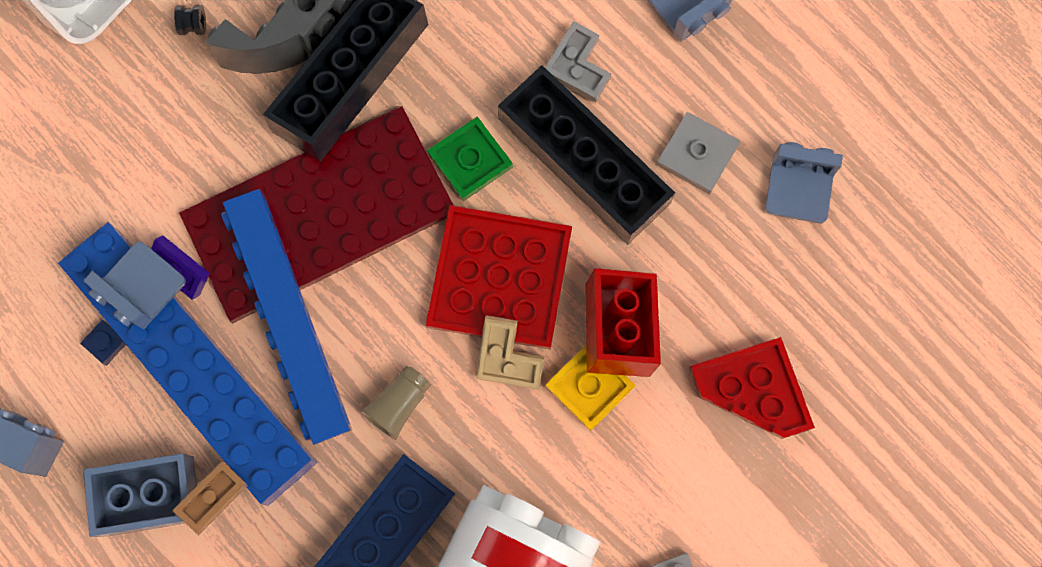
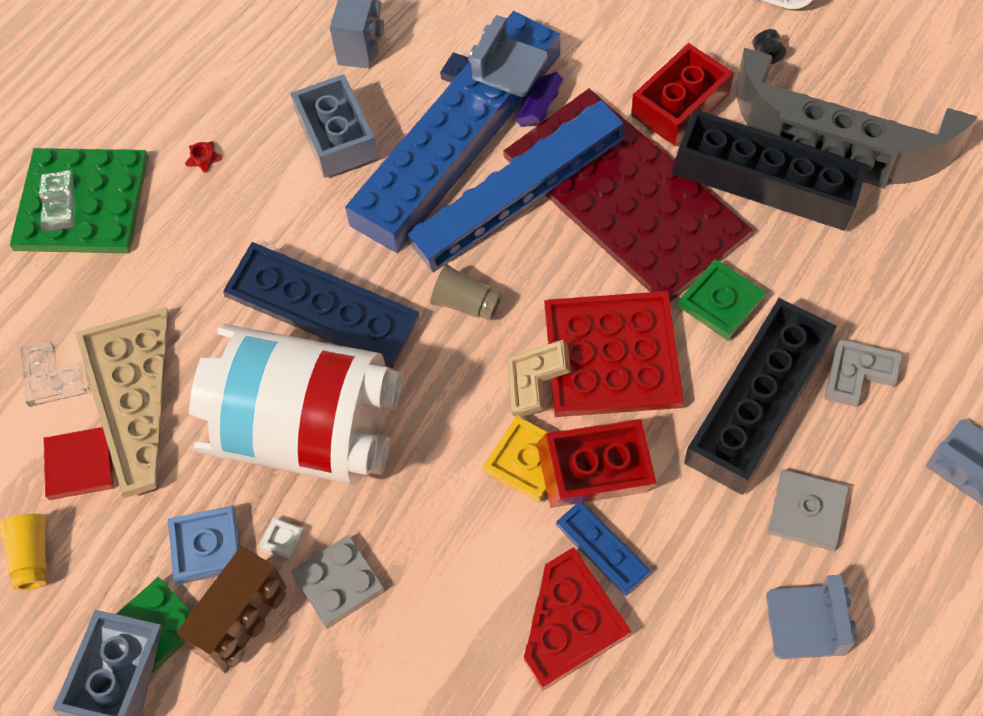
camera: 80 degrees right, 15 degrees down
(210, 498) = (340, 164): medium nougat plate -> none
(224, 122) = (683, 84): none -> red brick
(696, 339) = (603, 548): none -> blue tile

